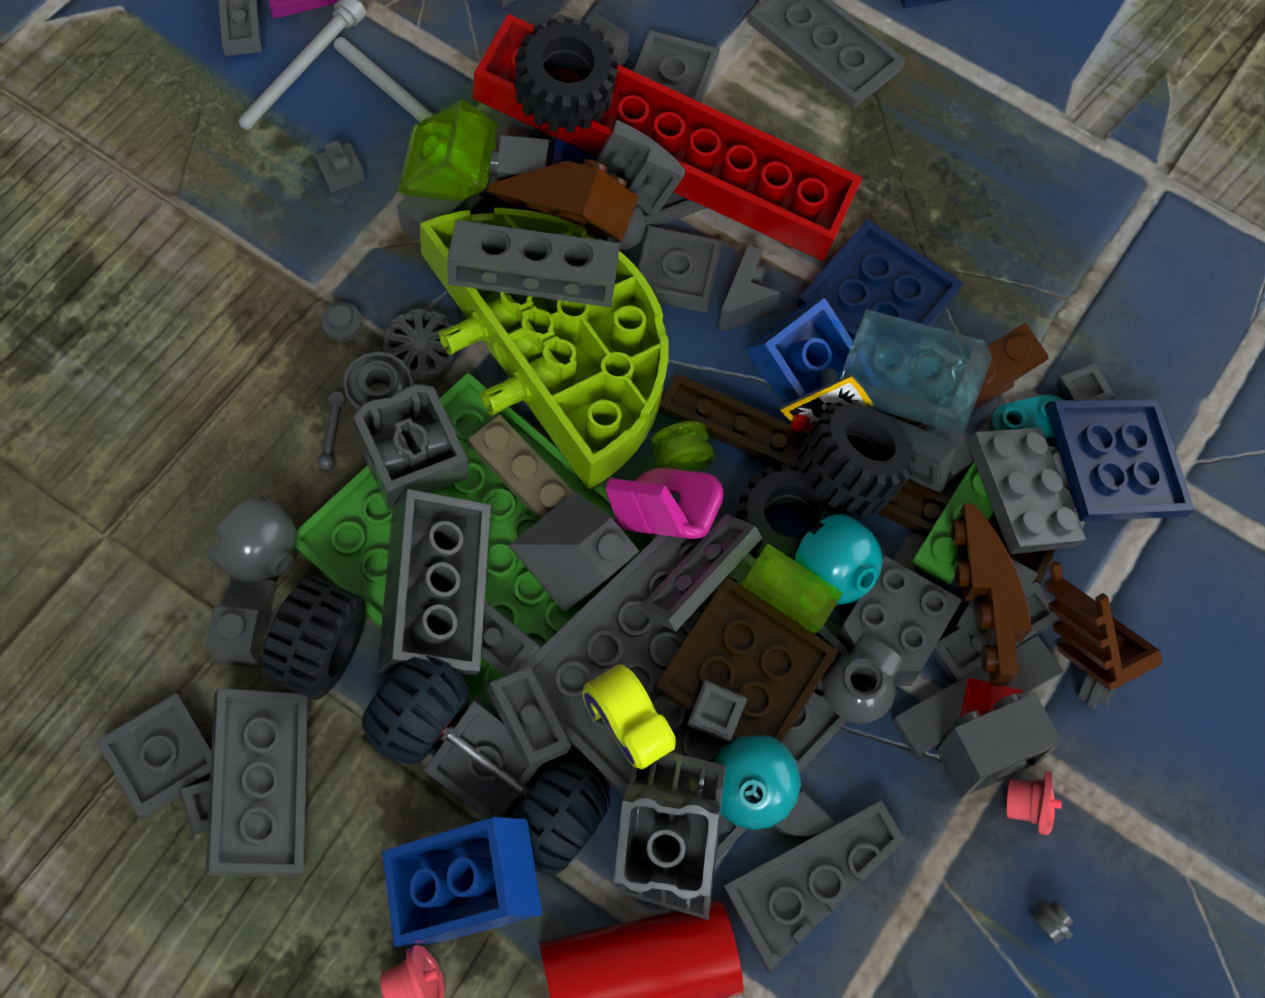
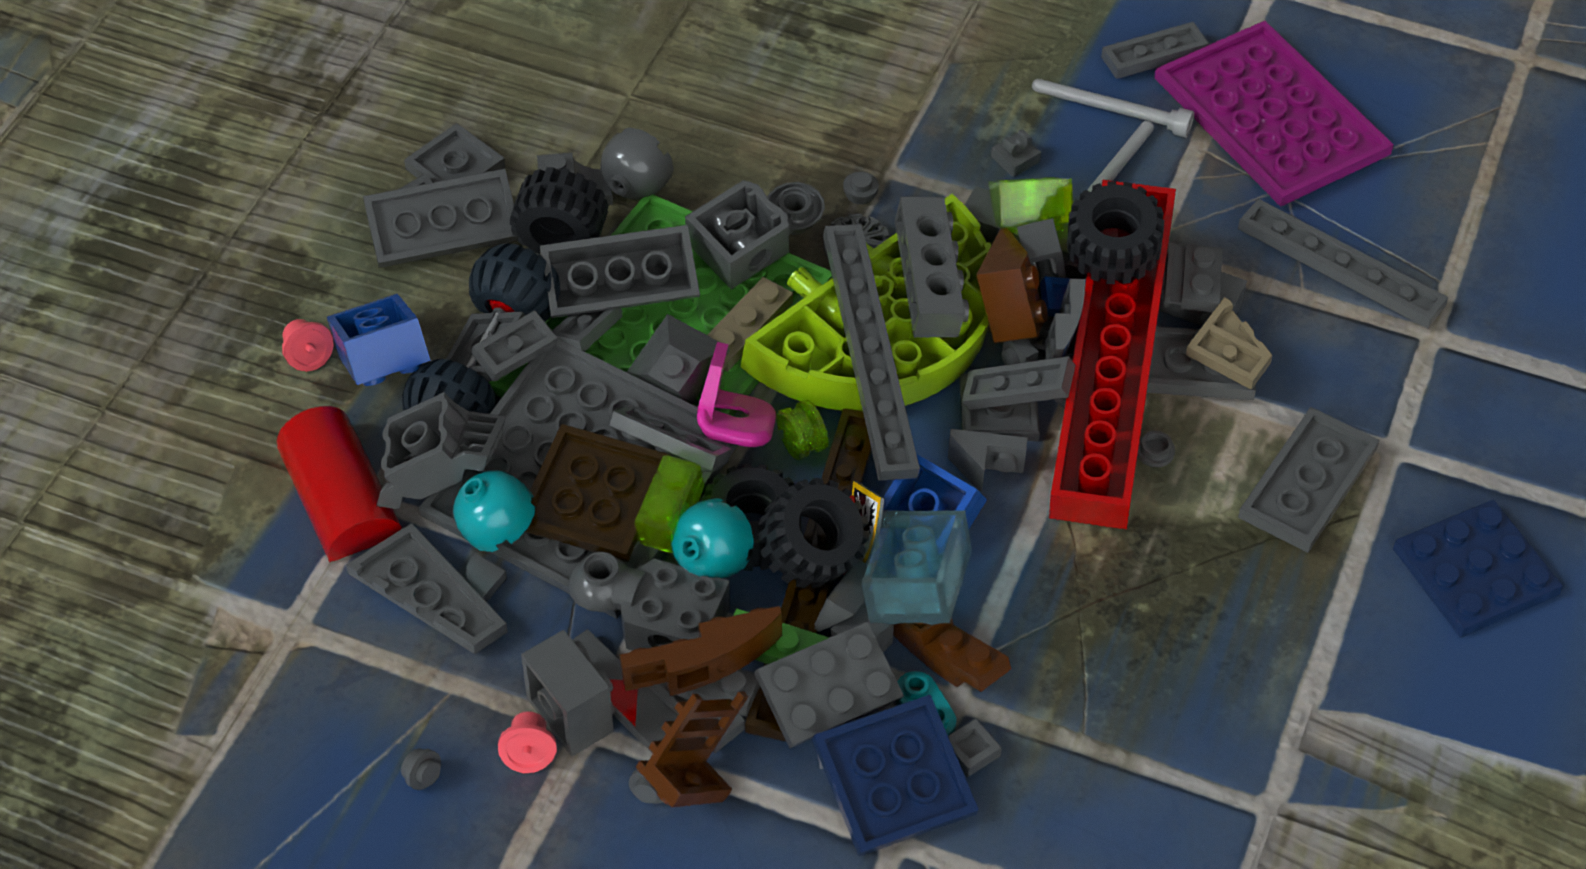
camera: 80 degrees right, 15 degrees down
(629, 715) = (524, 390): neon yellow animal -> none
(632, 346) = (871, 353): none -> dark grey plate
(675, 48) = (1230, 347): none -> dark tan wing
(691, 230) = (1018, 383): none -> dark grey plate
(716, 711) = (547, 468): dark grey tile -> none
(884, 277) = (1026, 563): dark blue plate -> none

